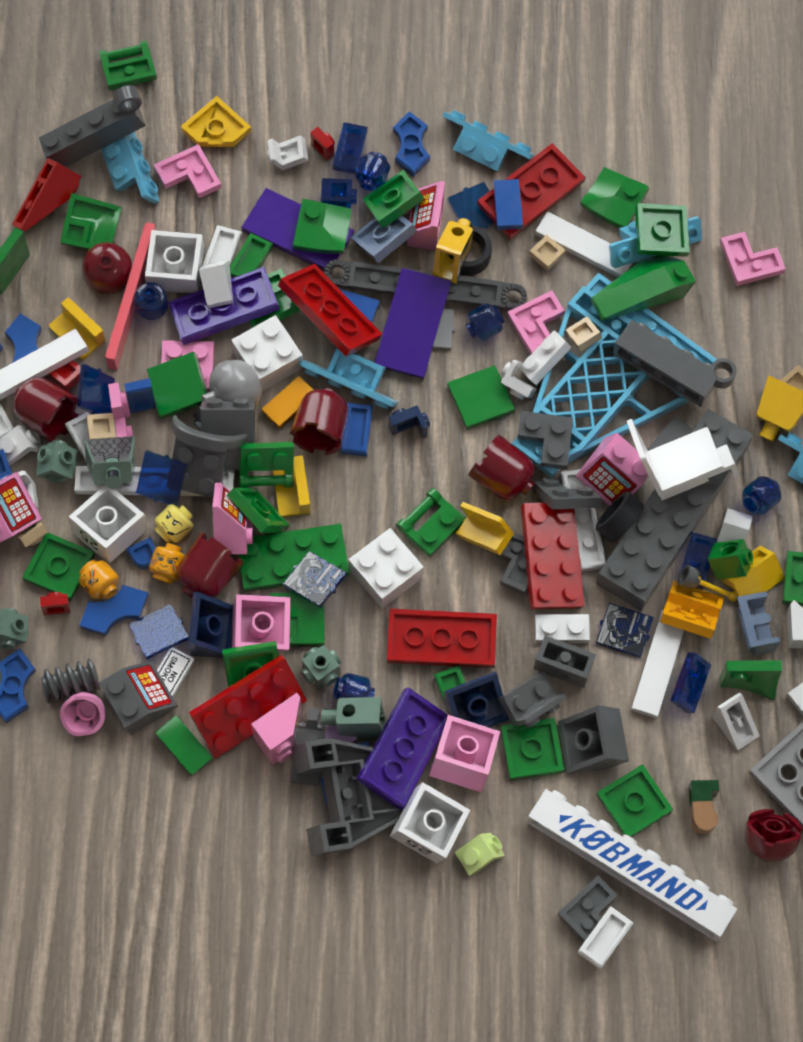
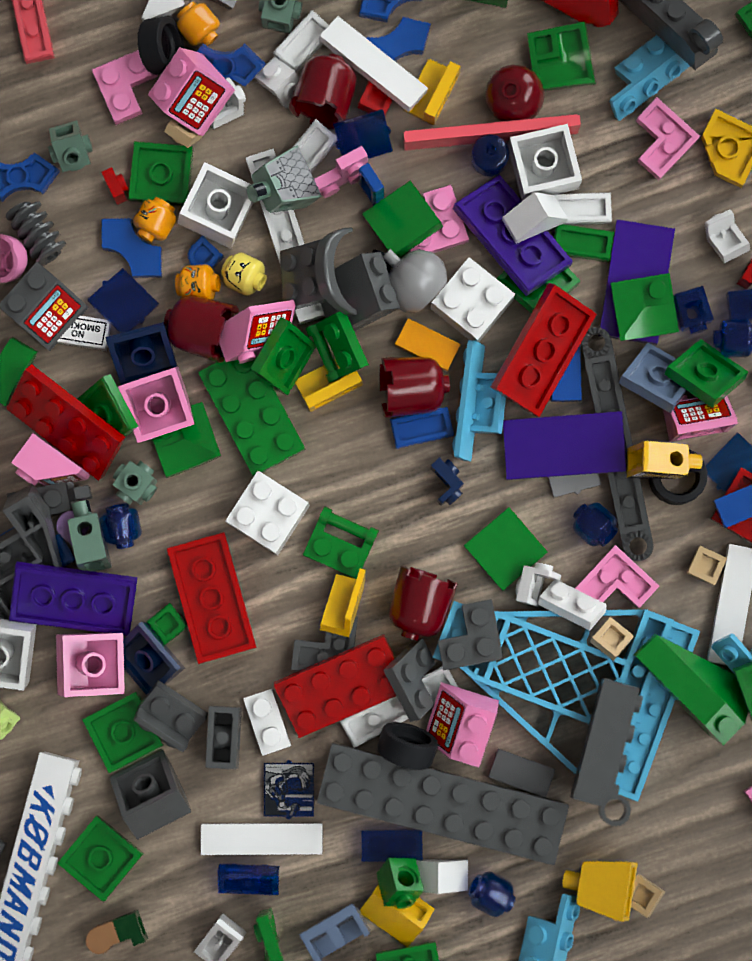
camera: 75 degrees right, 15 degrees up
(56, 462) = (270, 126): sand green brick -> none
(100, 426) = (320, 157): tan plate -> none
(161, 478) = (281, 241): clear blue piece -> none
(314, 579) = (226, 442): piece -> none
(683, 462) = (479, 795): white piece -> none
(691, 578) = (363, 845): dark grey hinge -> none
(692, 610) = (331, 856): light orange slope -> none

